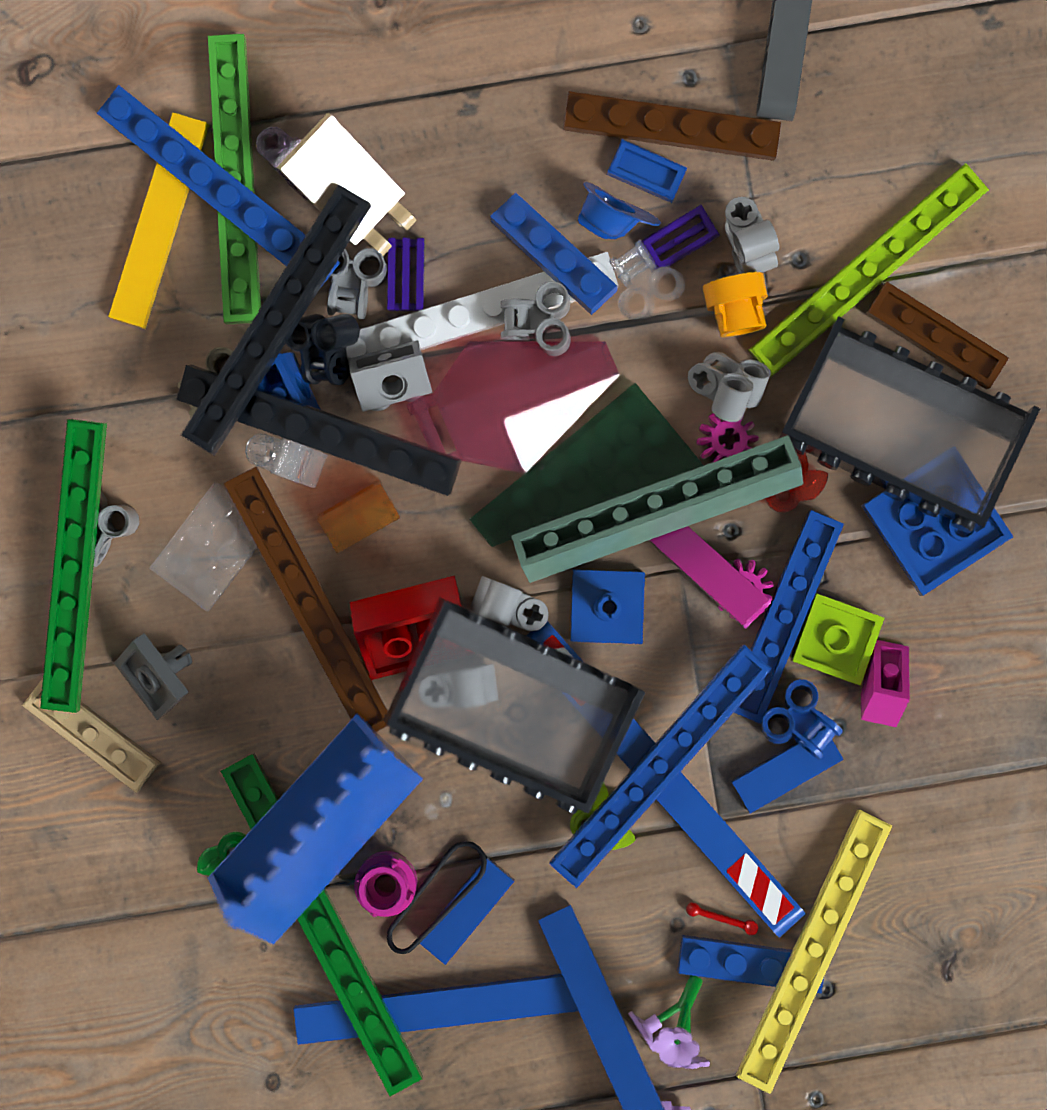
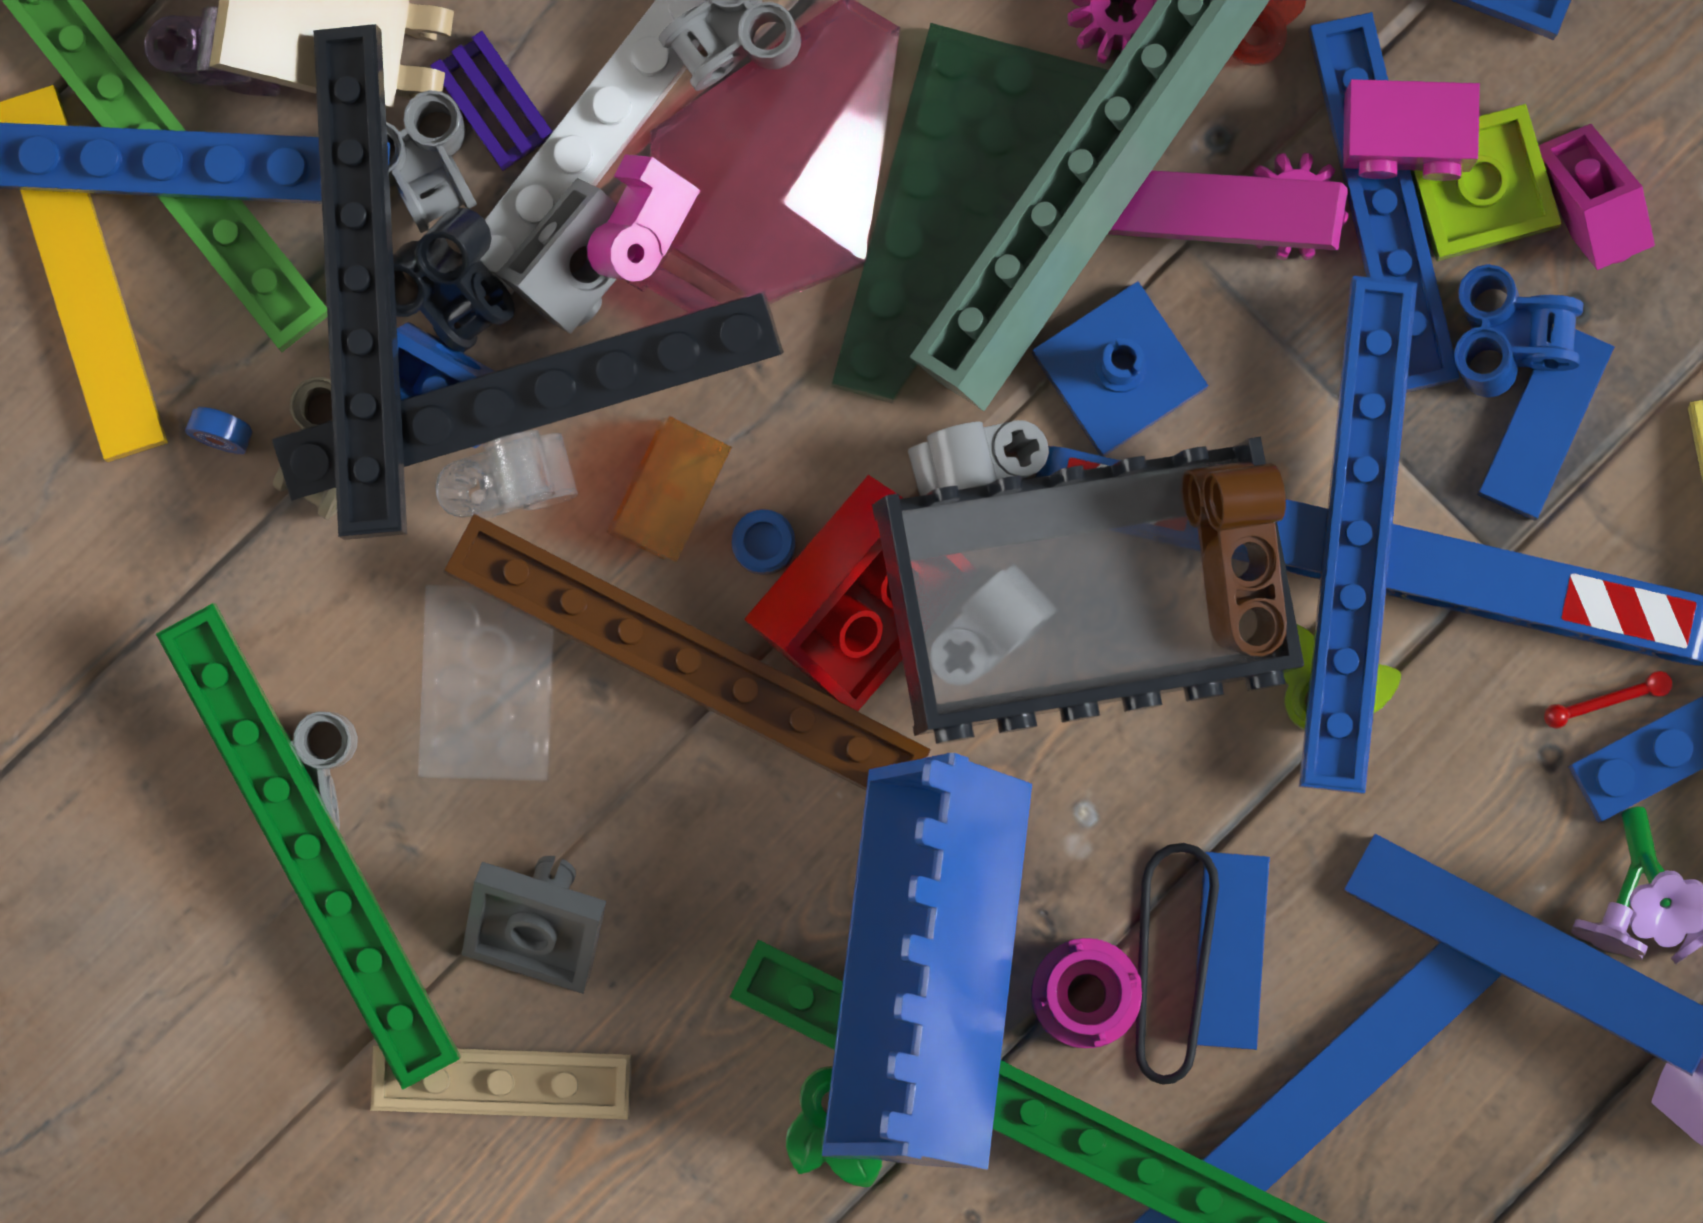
camera: 25 degrees left, 5 degrees down
(170, 341) = (219, 430): none -> blue tile
(386, 570) = (763, 542): none -> blue tile
(430, 384) = (642, 221): none -> leg
(607, 719) = (1233, 508): none -> reddish brown piece
(822, 593) = (1411, 128): none -> dark pink brick

